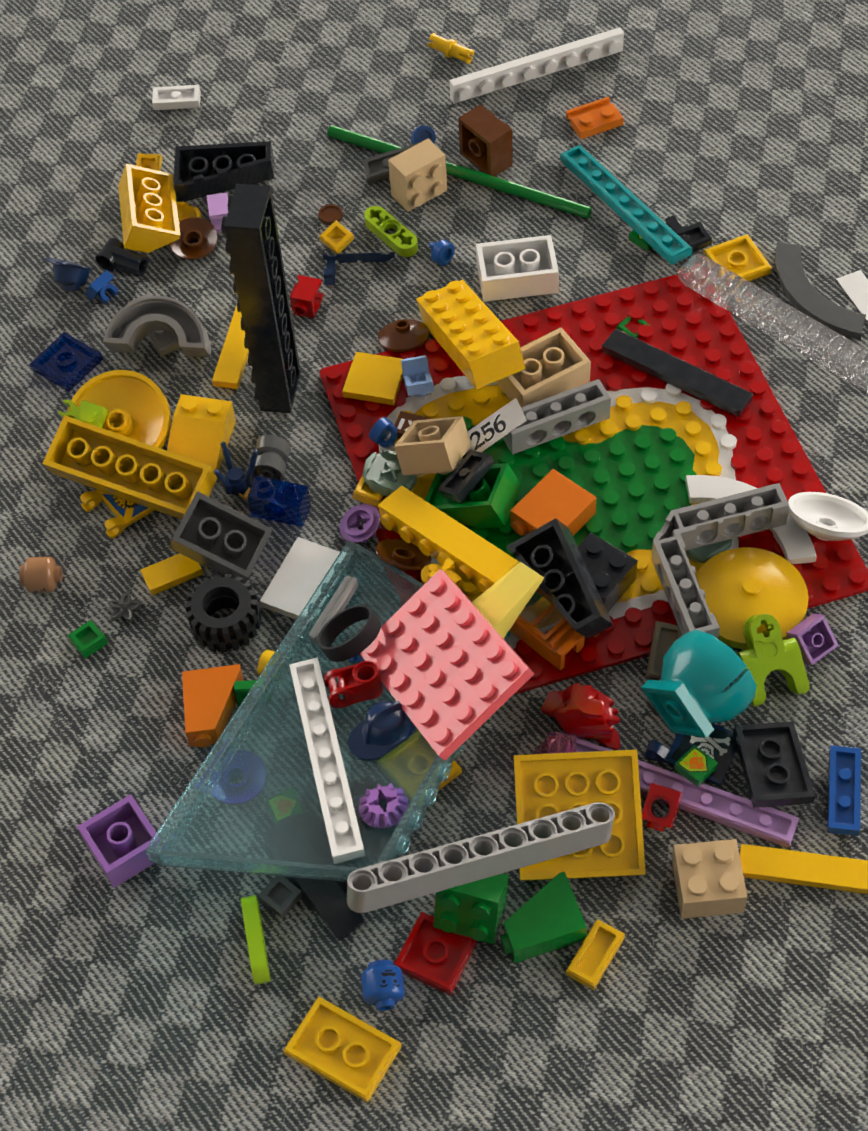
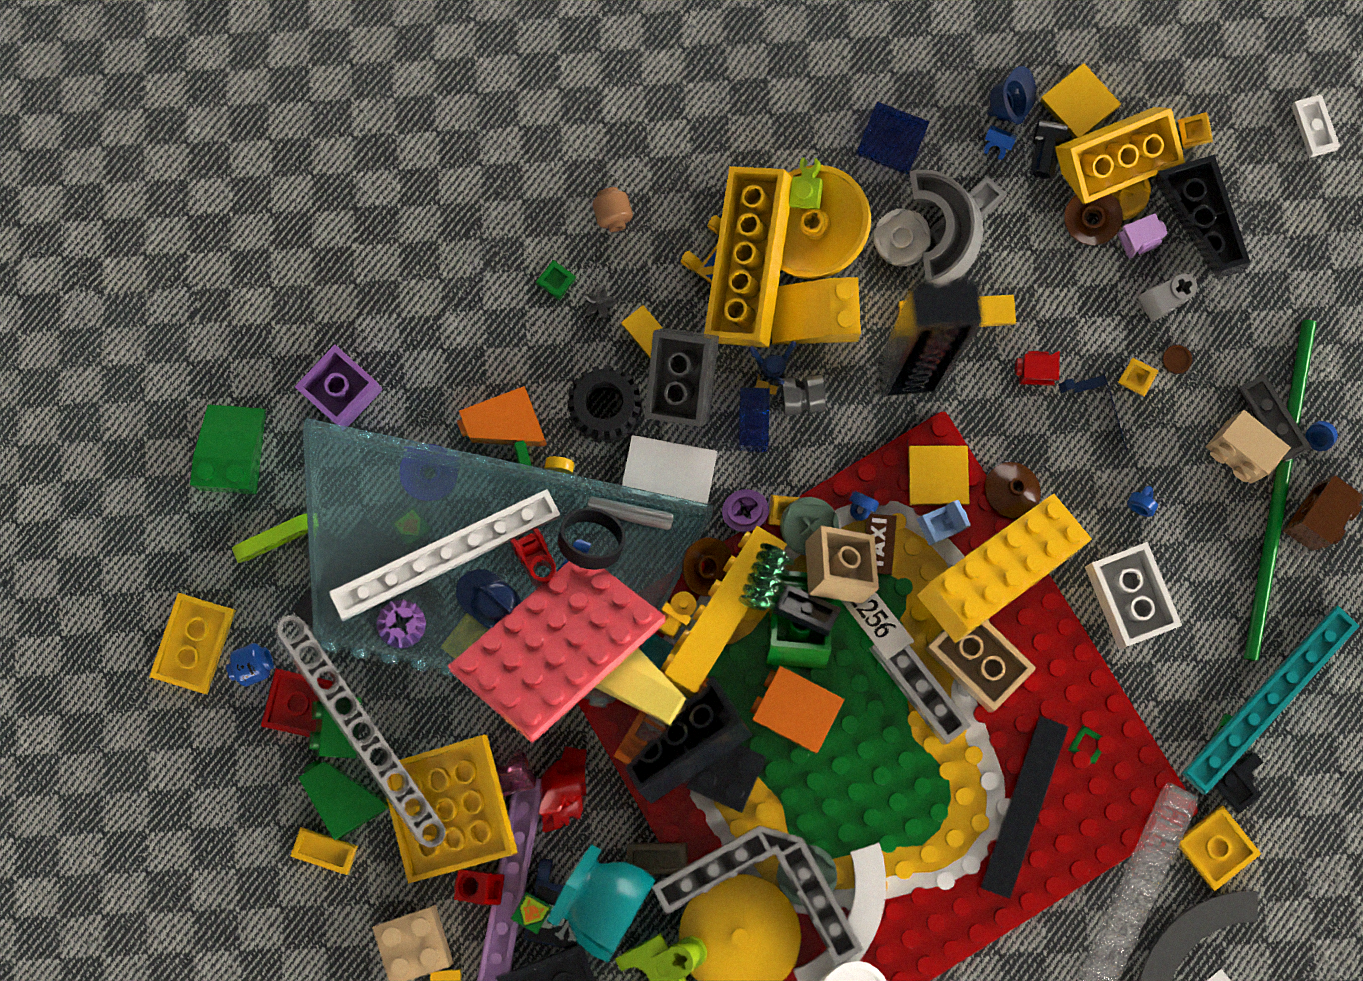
camera: 75 degrees right, 25 degrees up
(91, 232) = (1080, 101): none -> yellow tile
(149, 967) = (229, 450): none -> green slope
(160, 365) = (902, 237): none -> white tile
(282, 206) = (1165, 298): none -> light grey piece
(394, 240) = (1169, 414): lime beam -> none
(429, 492) = (765, 578): none -> clear green piece

